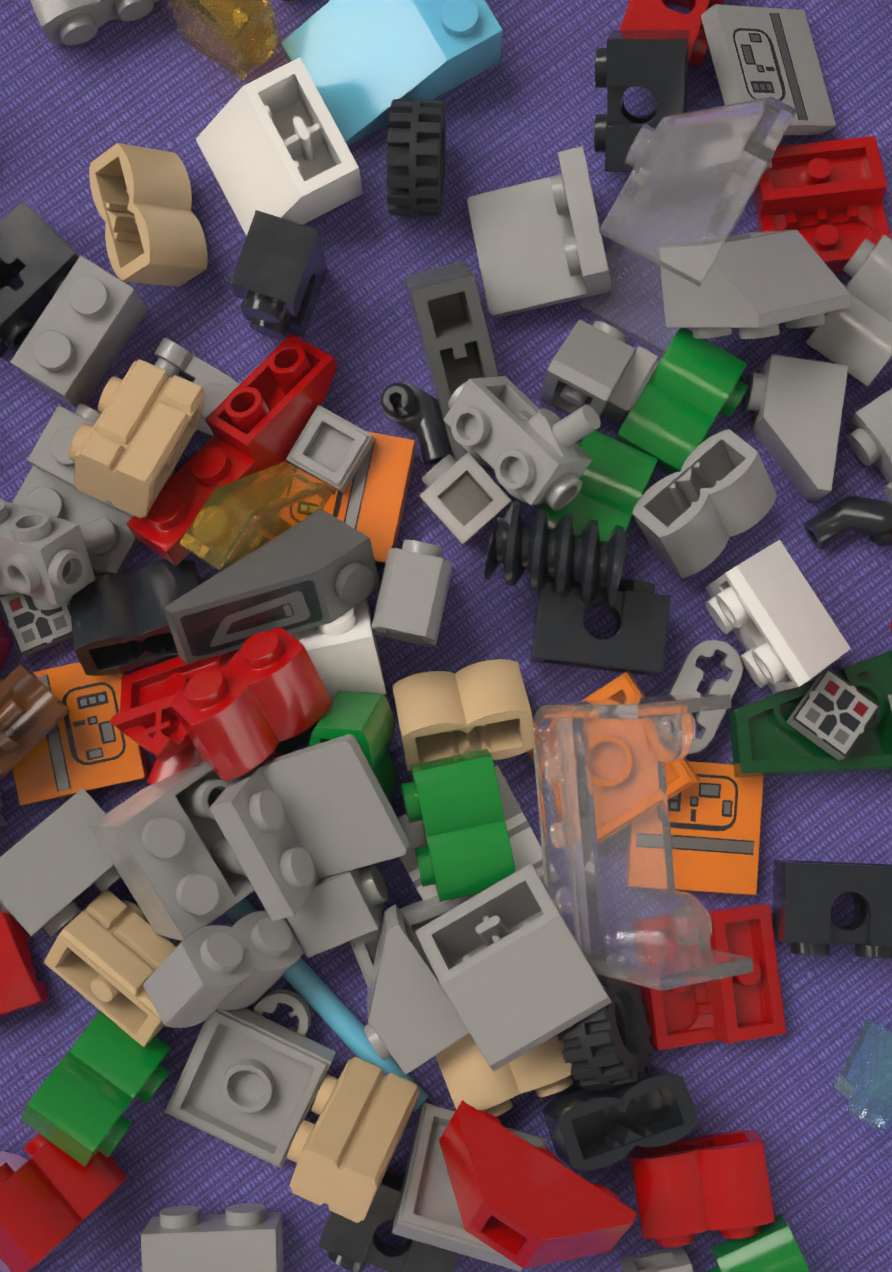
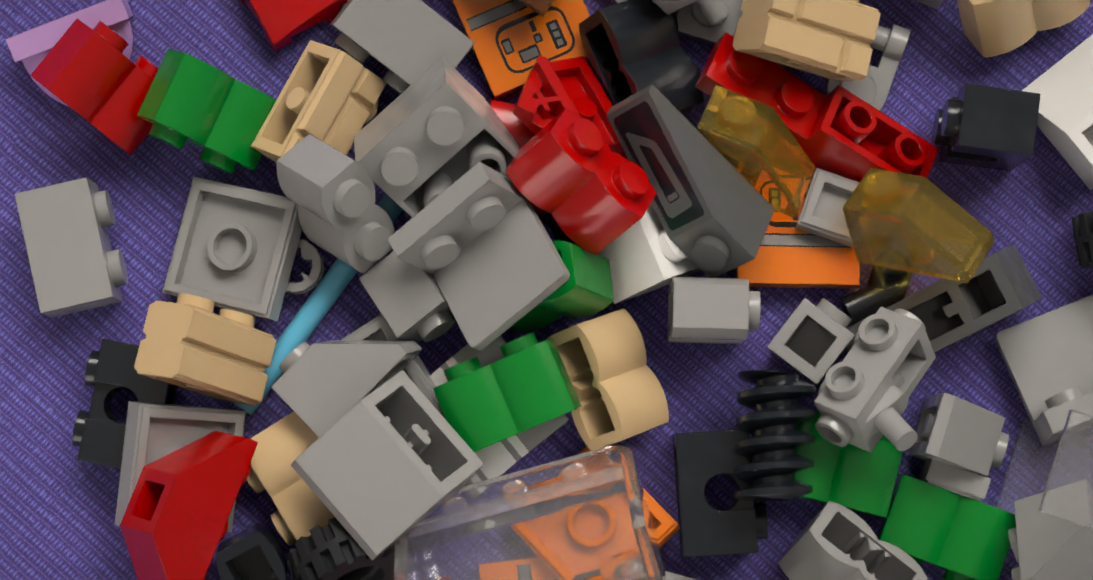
camera: 80 degrees right, 0 degrees up
(368, 369) = (914, 227): none -> clear yellow slope

